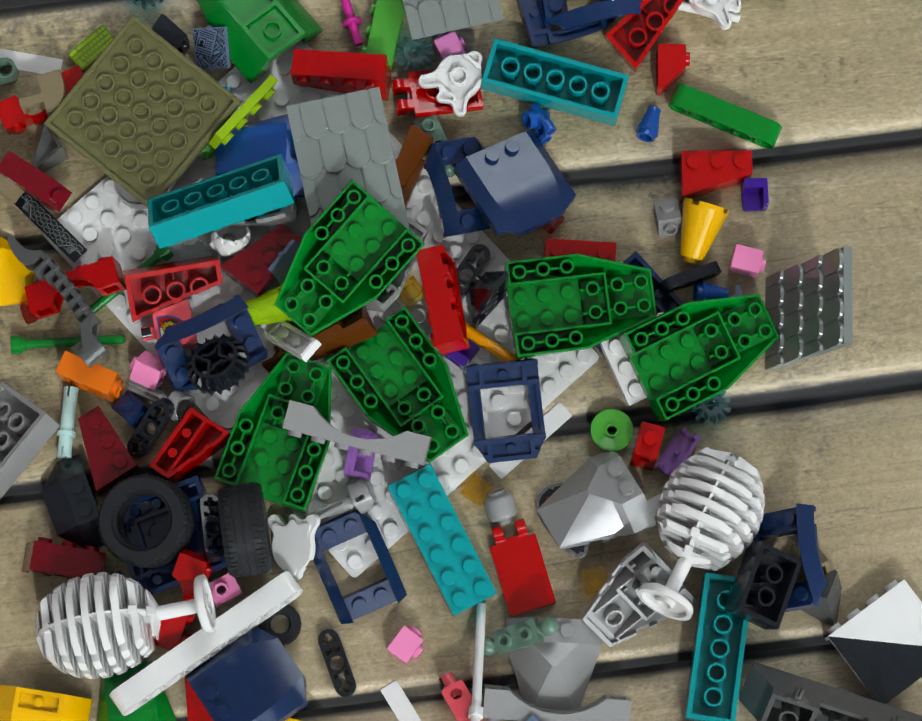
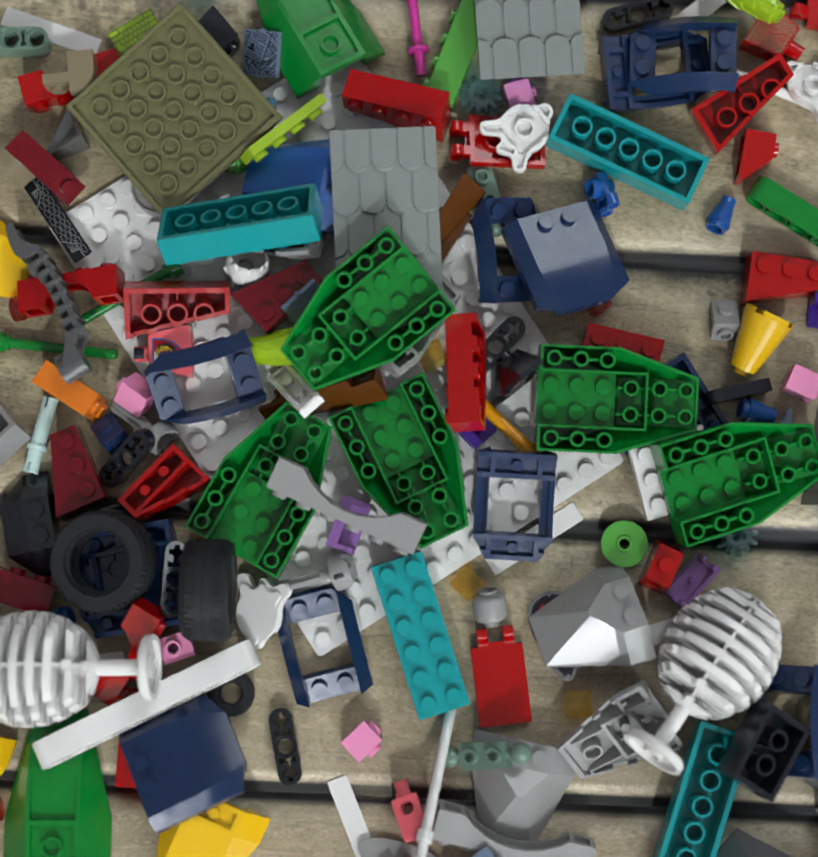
camera: 10 degrees right, 5 degrees up
(222, 370) = (211, 410): black gear -> none

